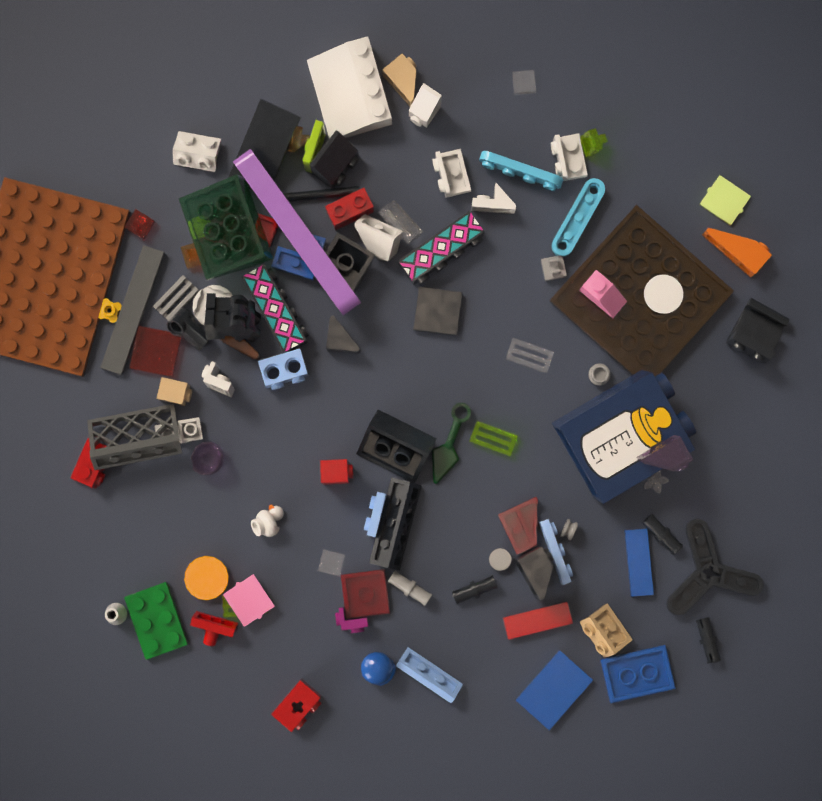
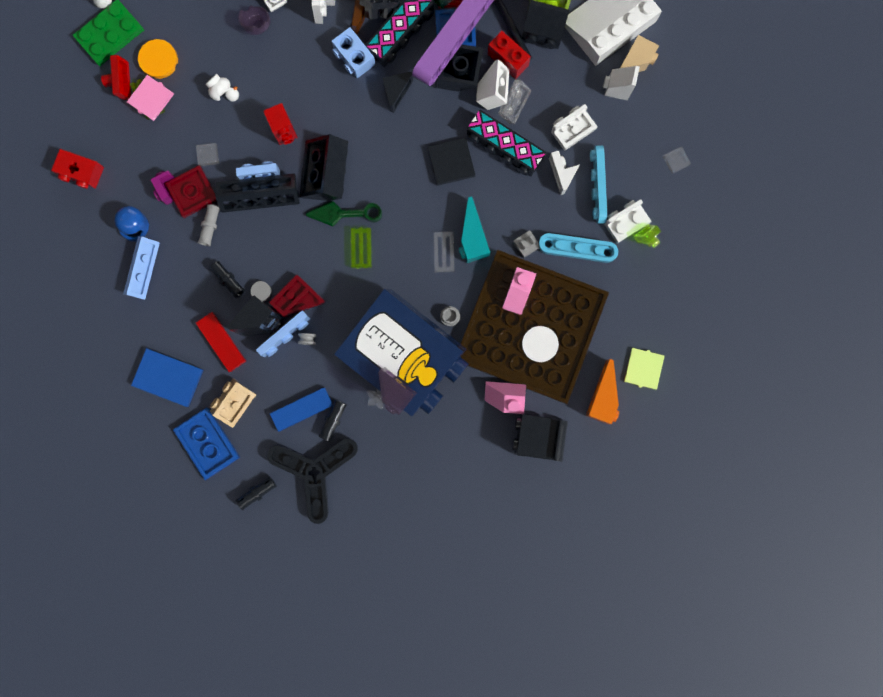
camera: 70 degrees right, 0 degrees up
(528, 320) = (473, 238): none -> teal slope
(705, 348) = (506, 396): none -> bright pink slope

